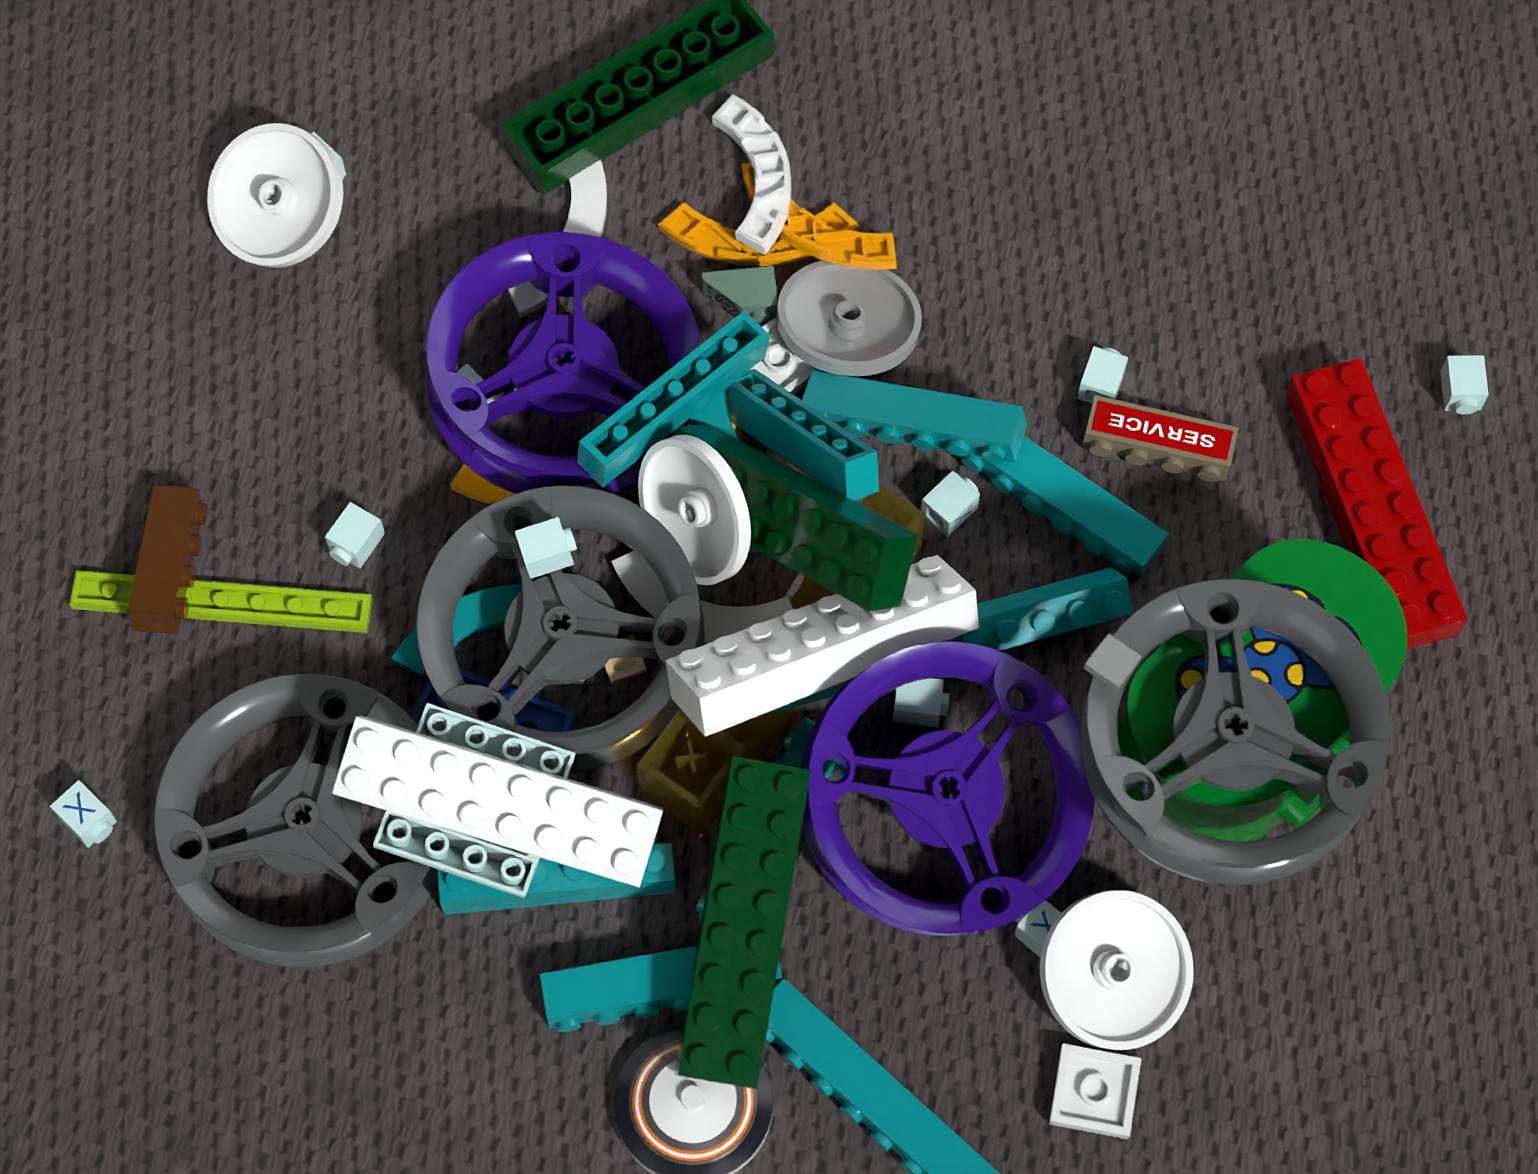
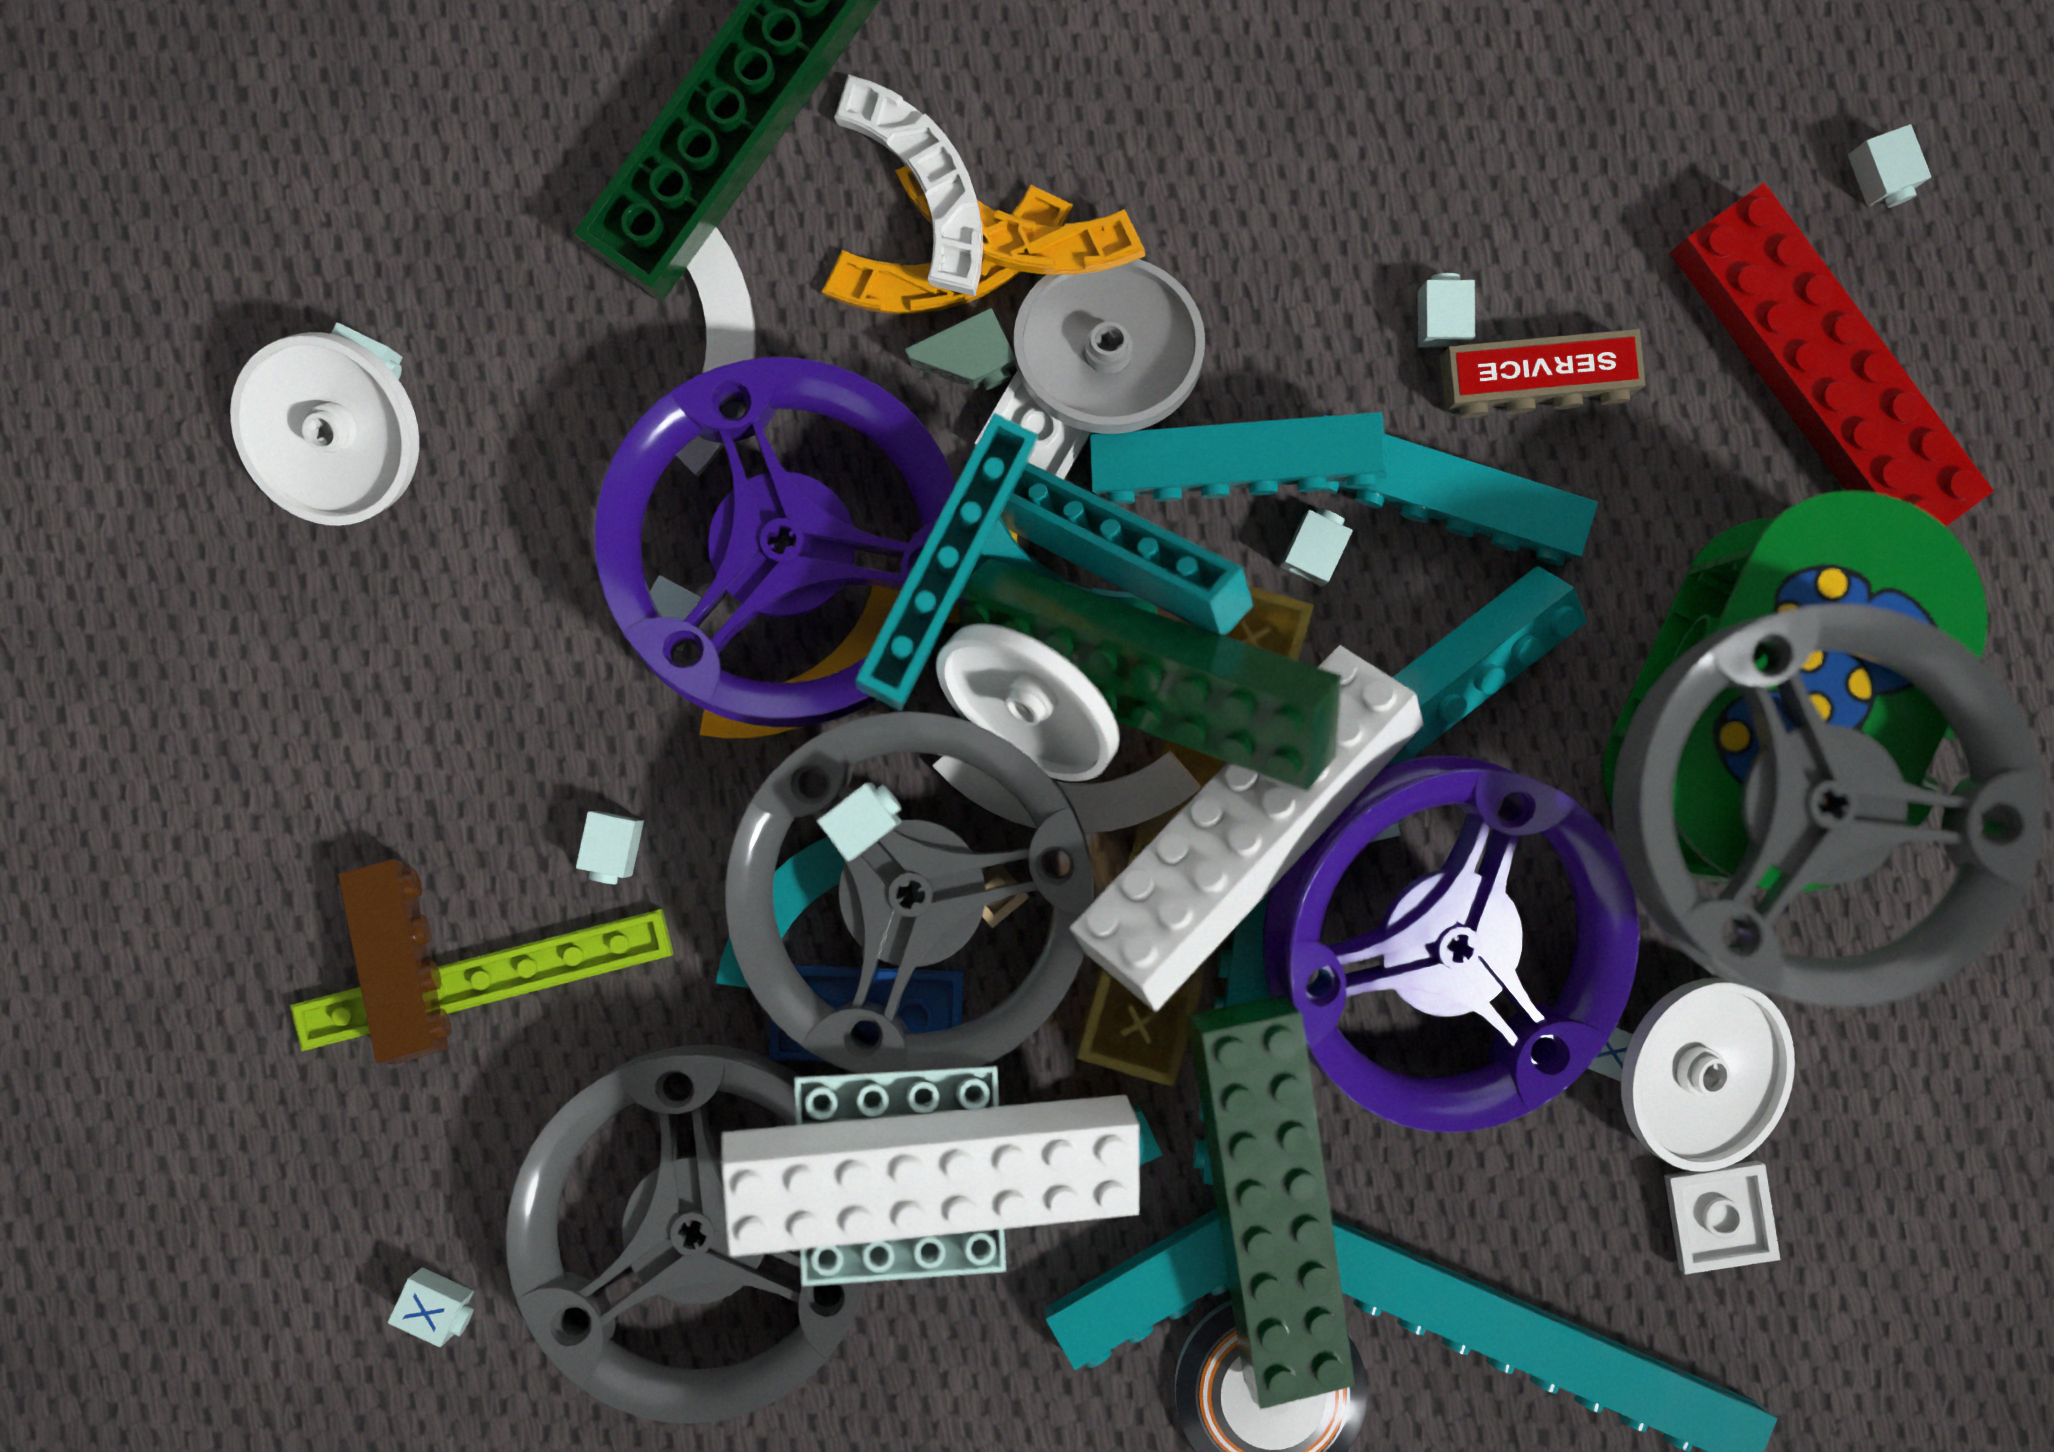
camera: 20 degrees left, 20 degrees up
(1112, 662) = (1664, 788): light grey tile -> none

